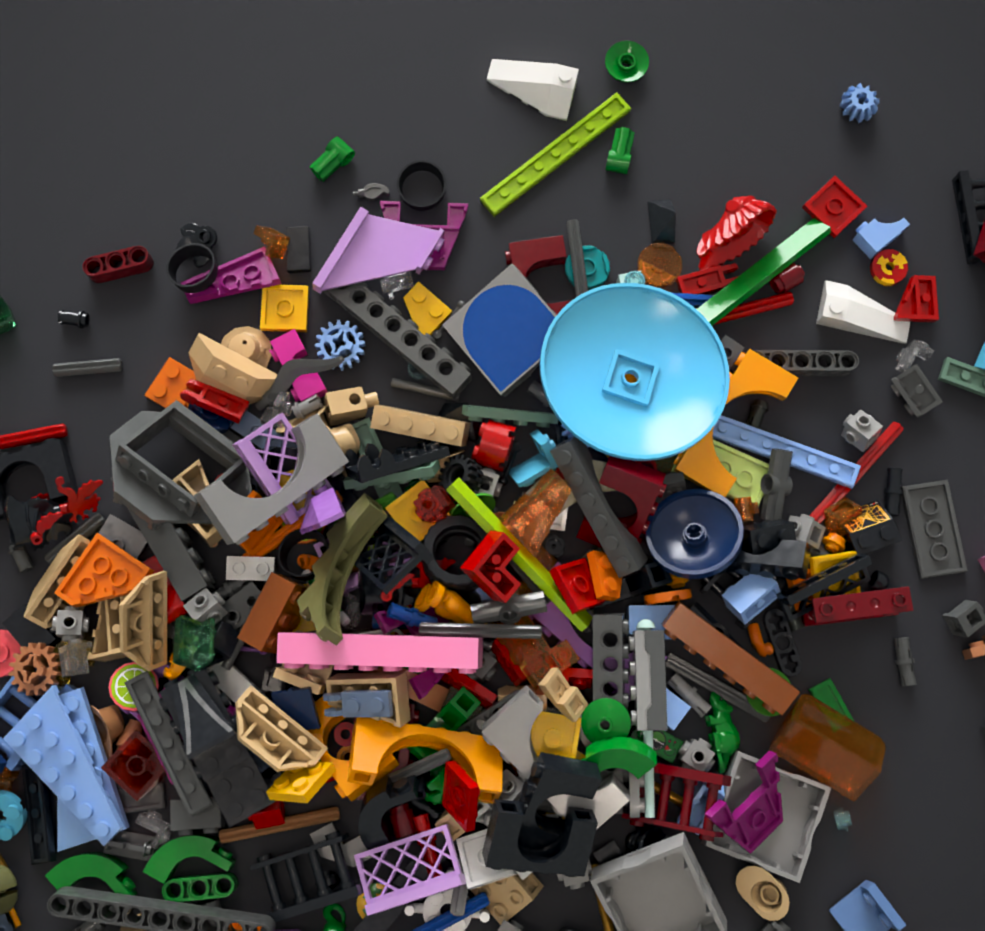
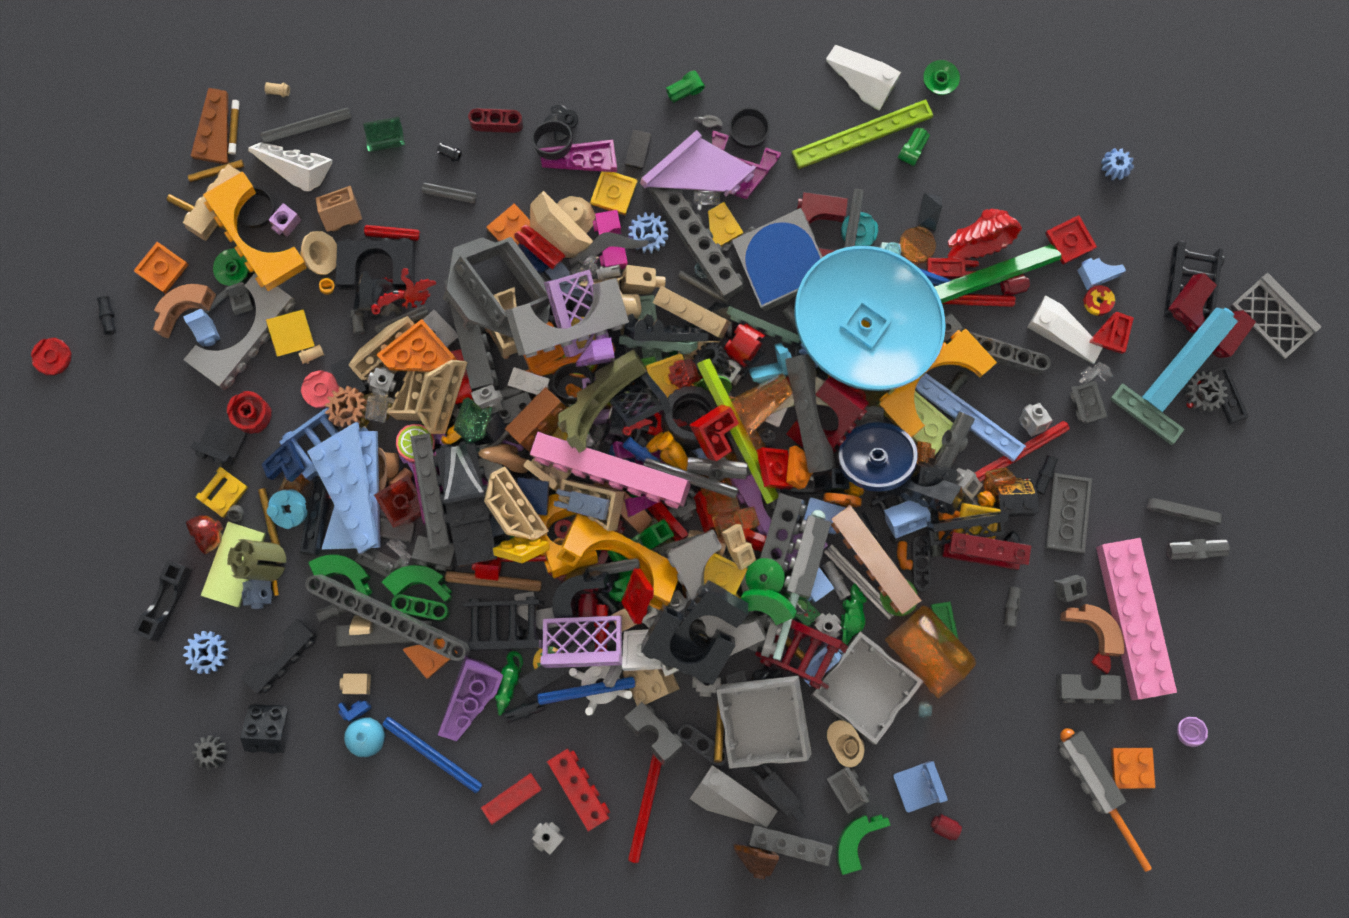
camera: 15 degrees right, 0 degrees up
(247, 669) = (506, 455): none -> medium nougat animal
(275, 240) = (622, 137): clear orange bracket -> none
(757, 814) = (860, 683): magenta wing -> none

